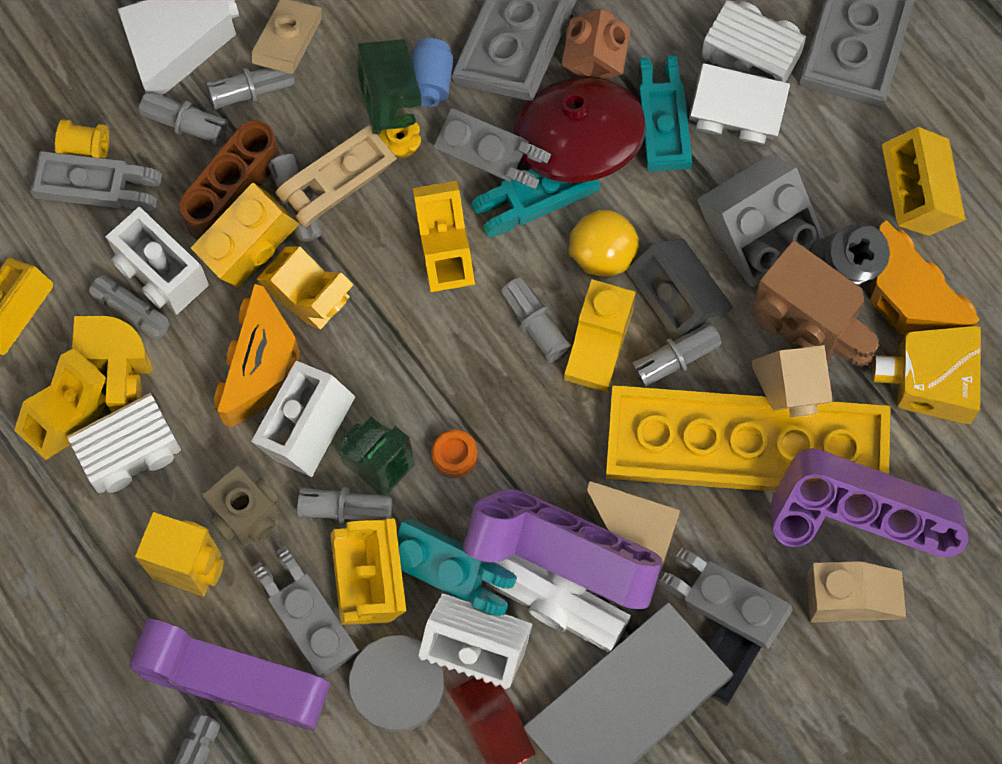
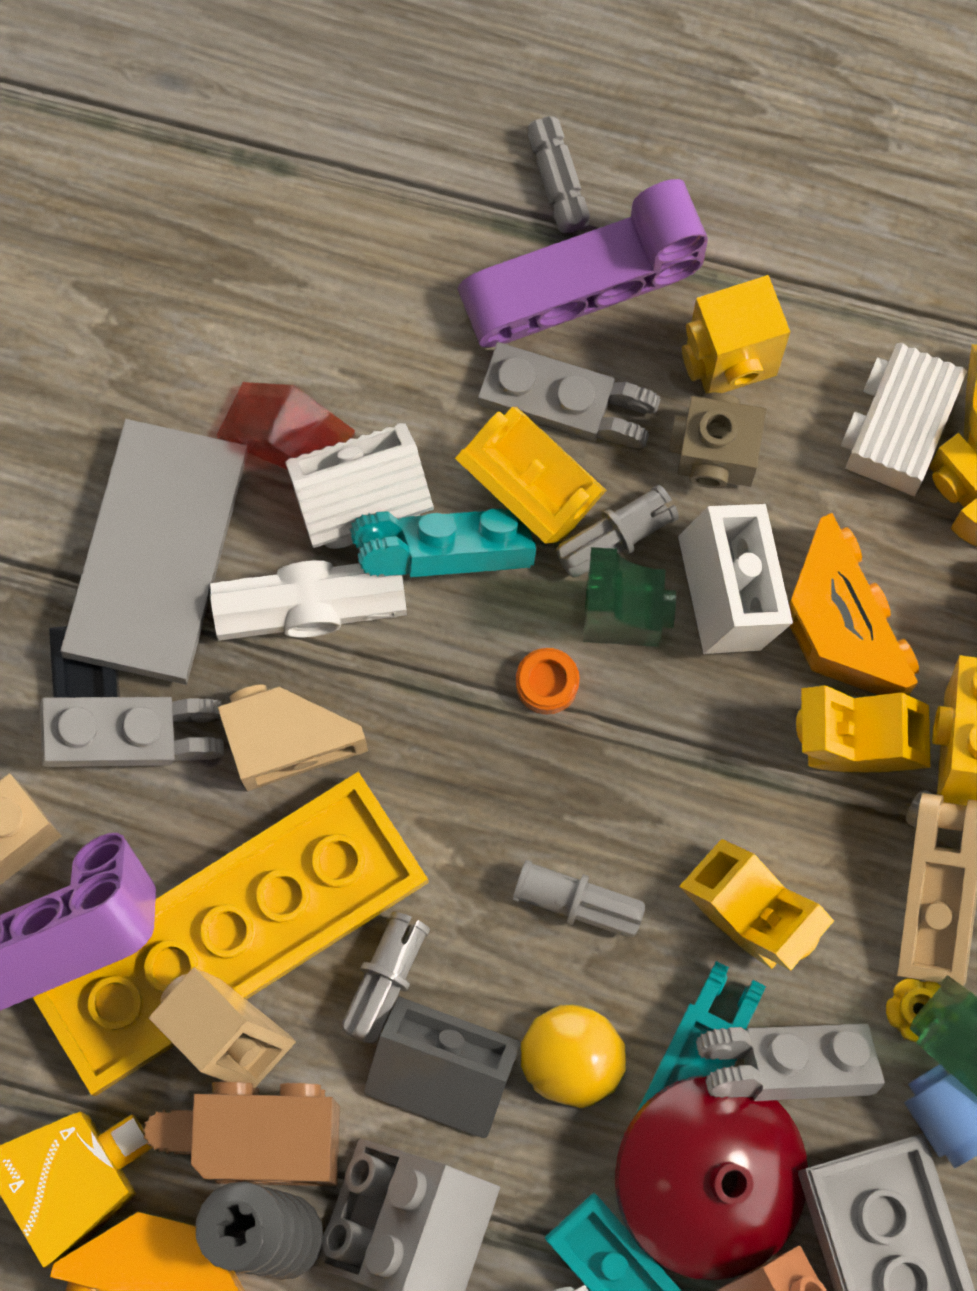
camera: 140 degrees right, 5 degrees up
(394, 685) = (417, 386): light grey tile -> none
(563, 544) = (342, 648): medium lavender beam -> none
(600, 335) = (488, 931): yellow arch -> none

